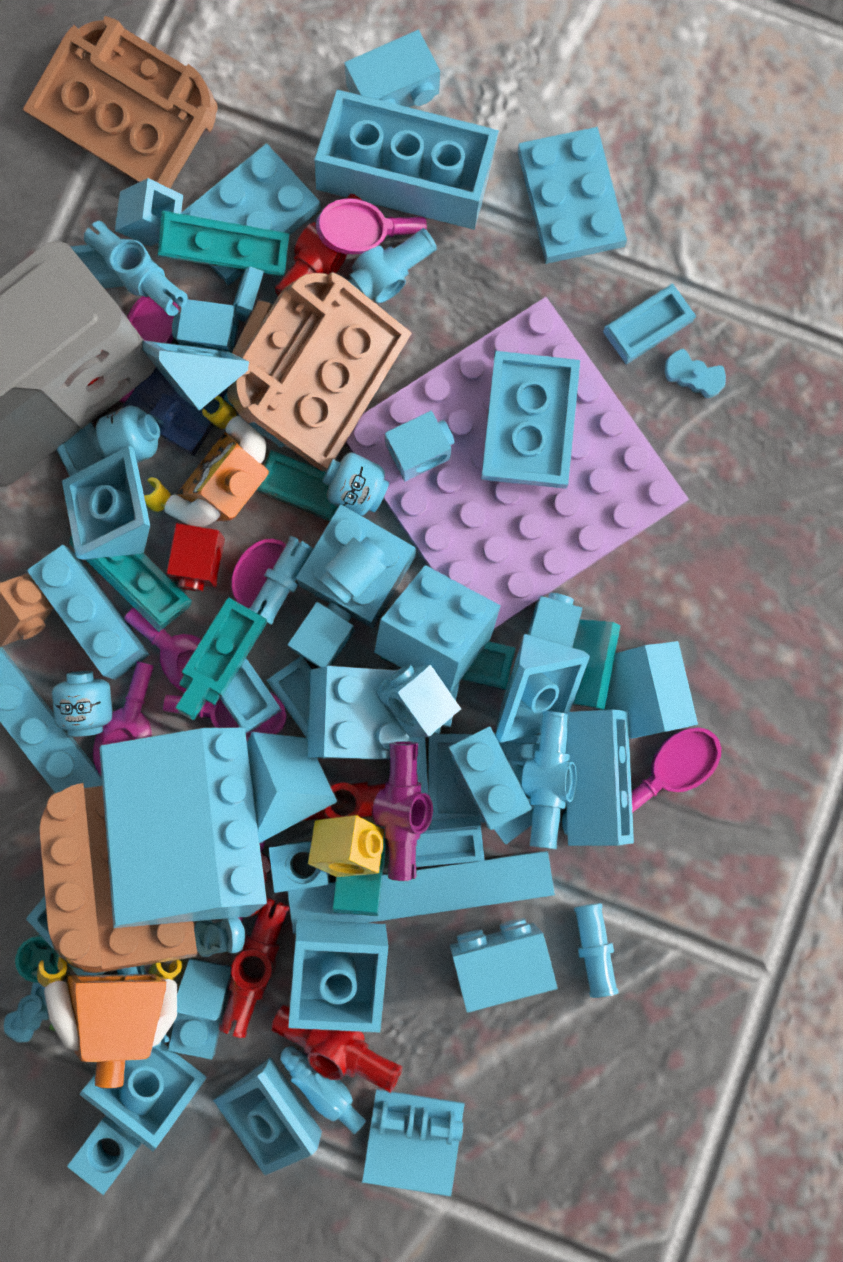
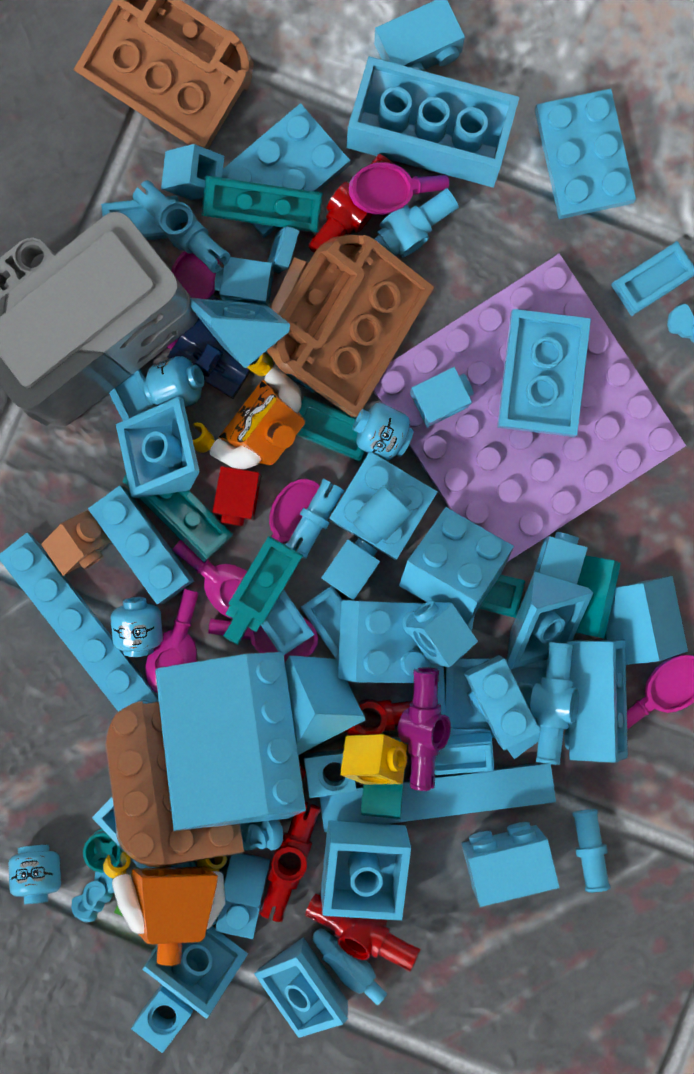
camera: 10 degrees right, 5 degrees up
(413, 1142) = (428, 1012): medium azure hinge -> none

